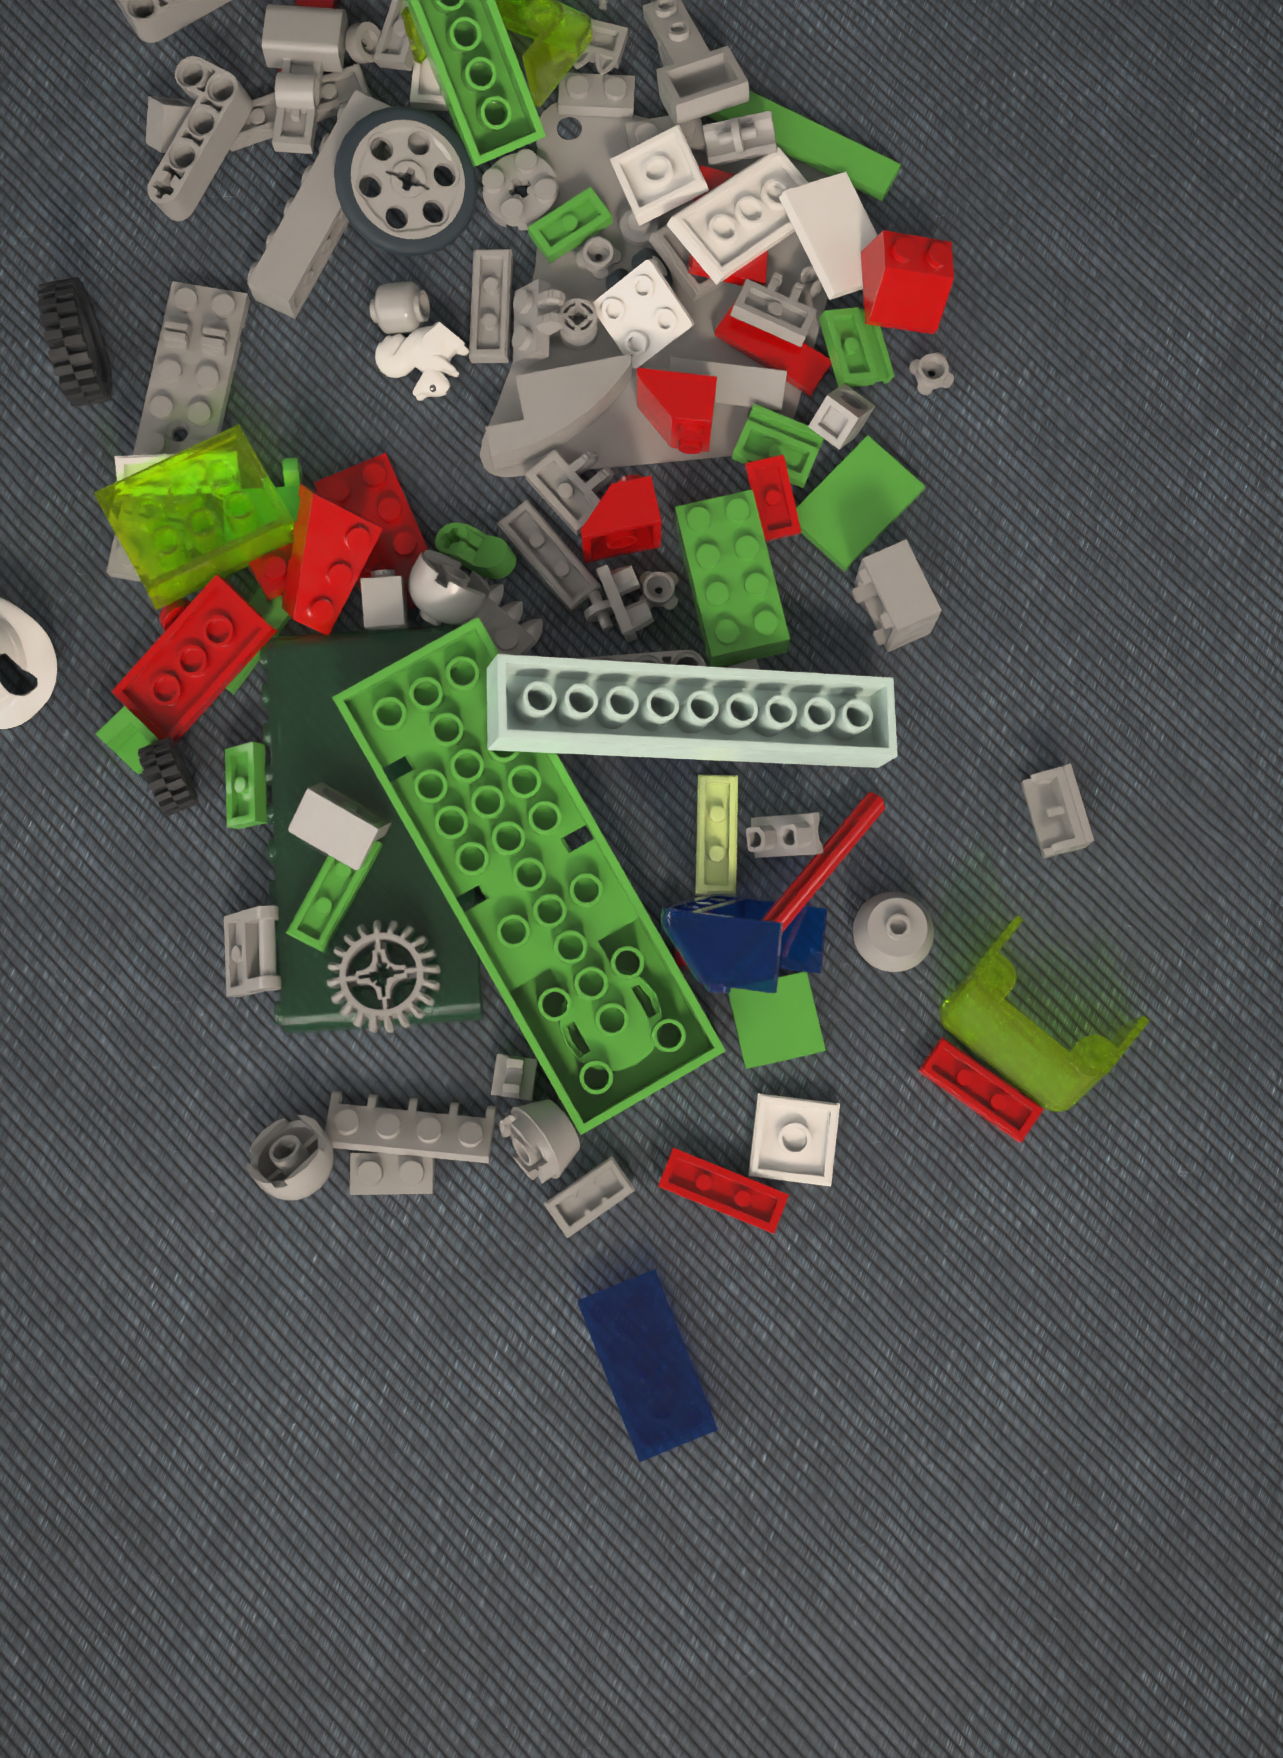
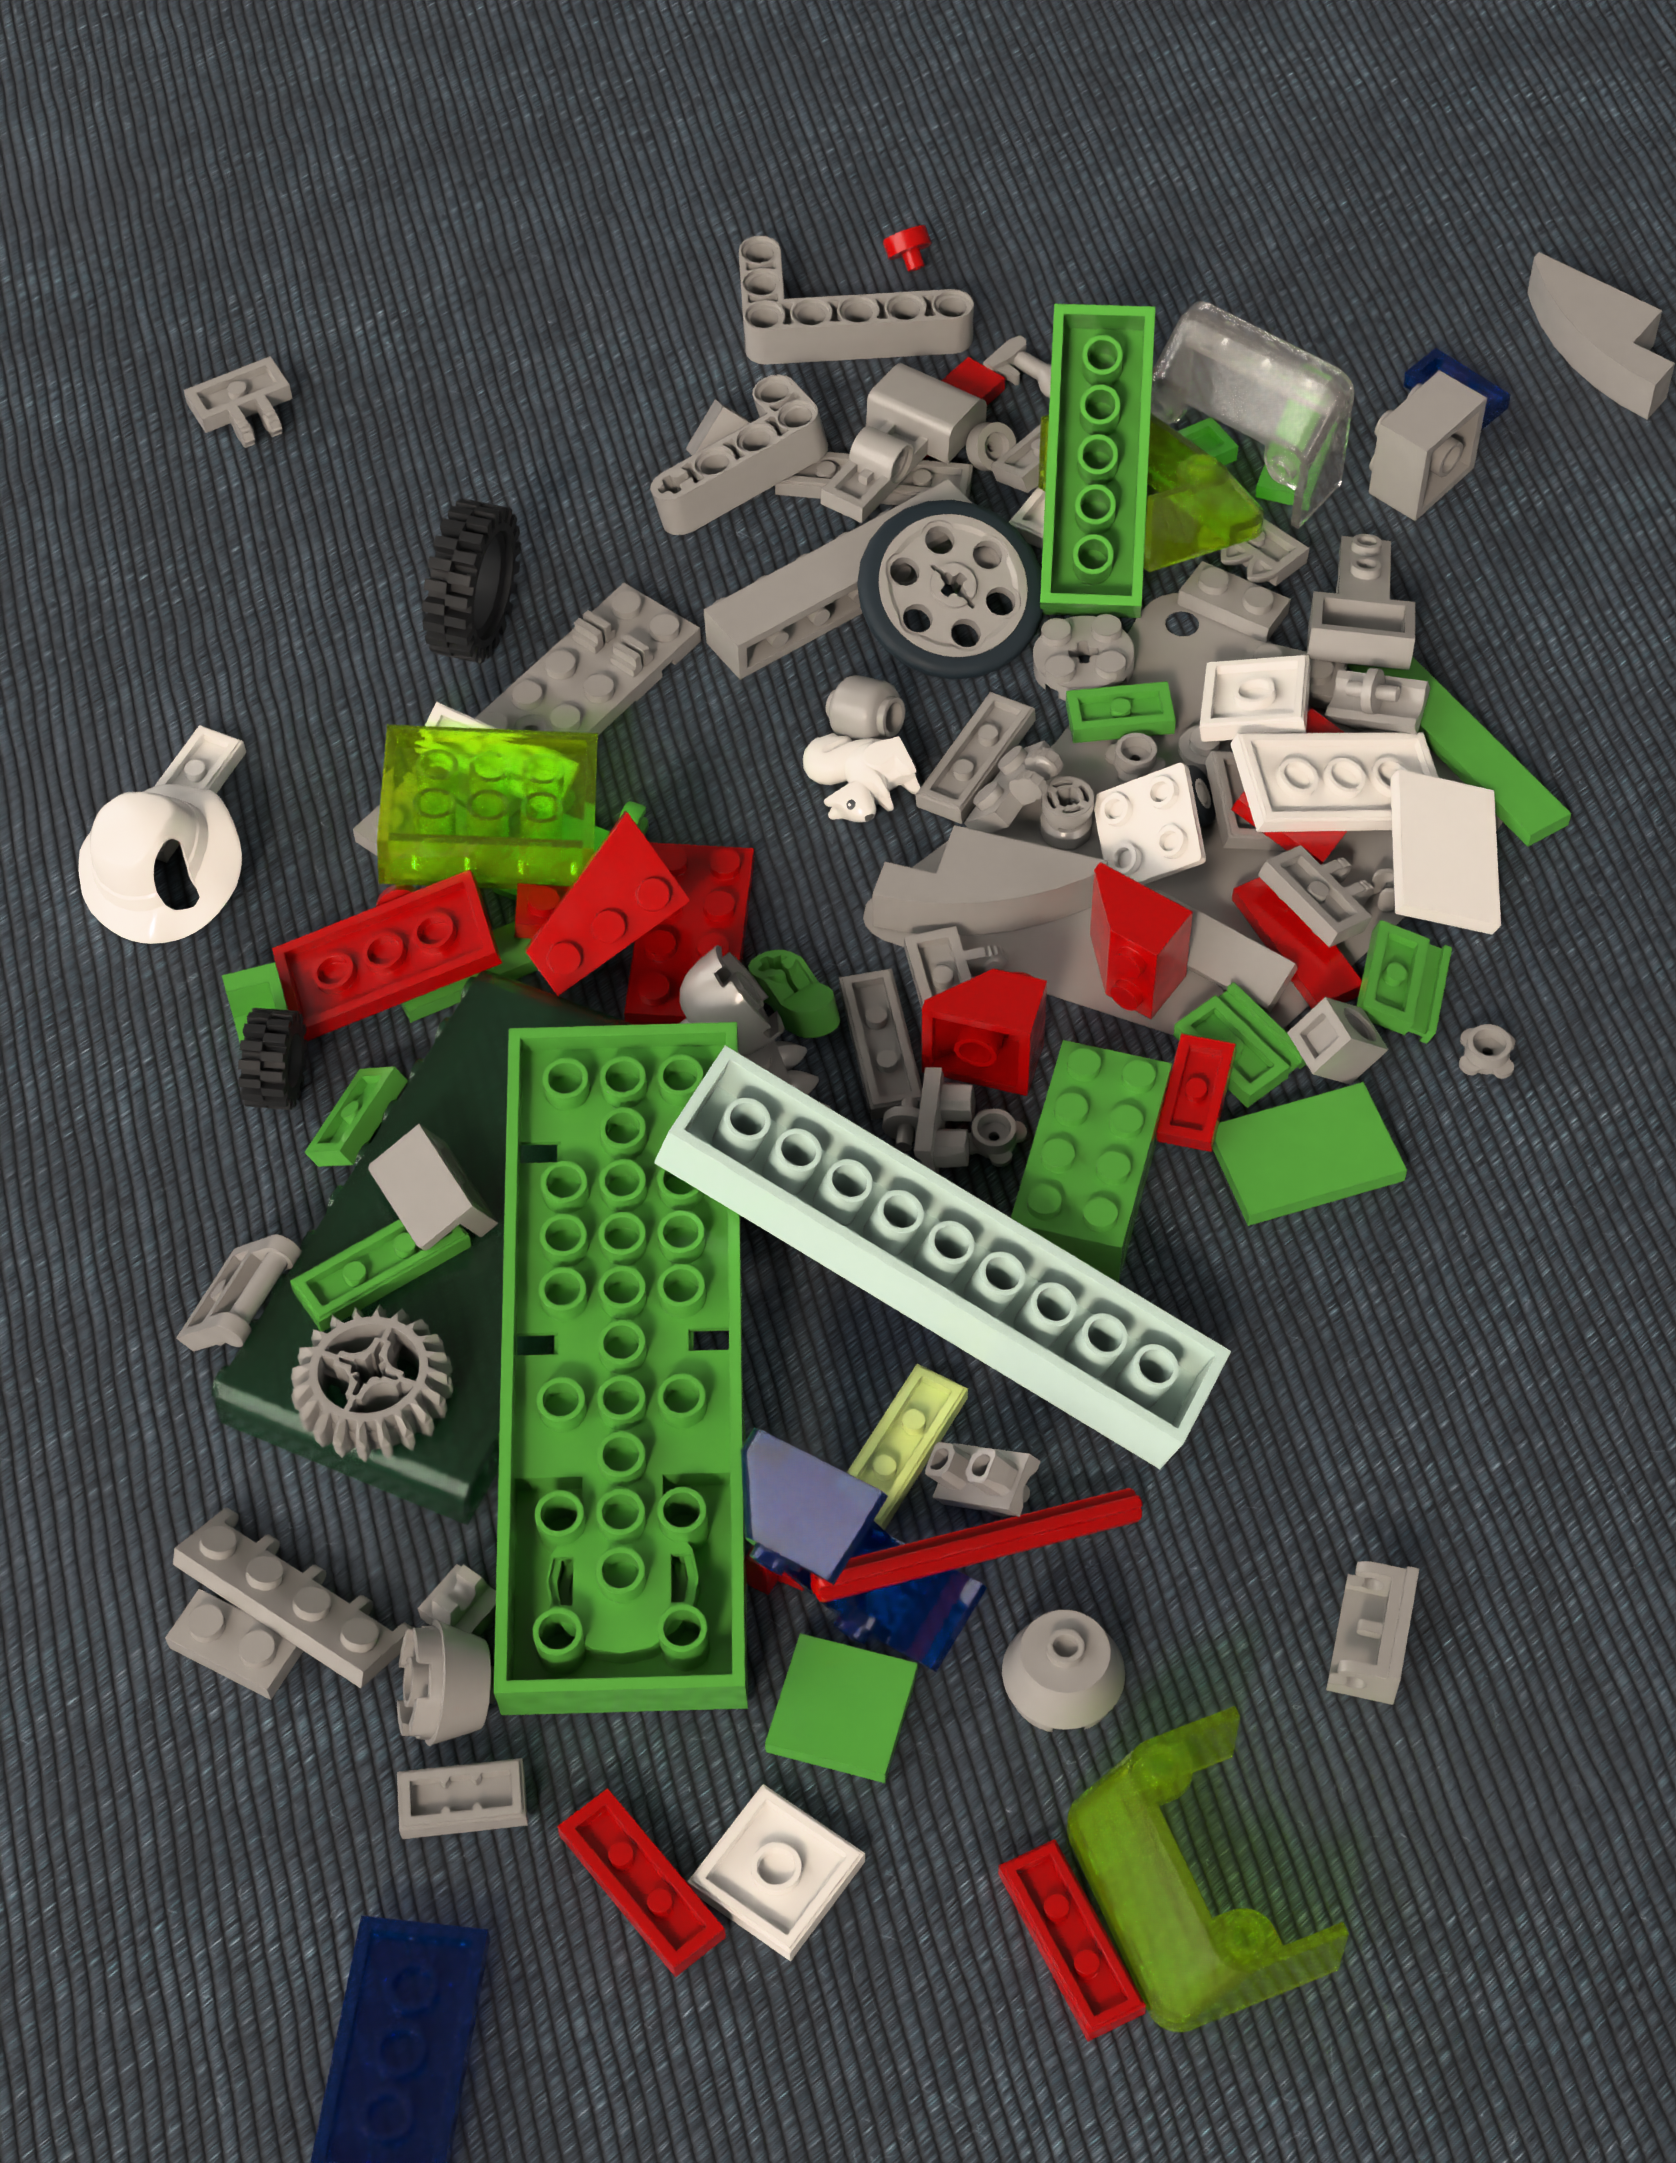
camera: 30 degrees right, 25 degrees down
(291, 1158) = (123, 1552): light grey cylinder -> none
(384, 600) = (646, 985): light grey brick -> none
(896, 596) = (1289, 1265): light grey container -> none
(906, 281) = (1505, 932): red slope -> none

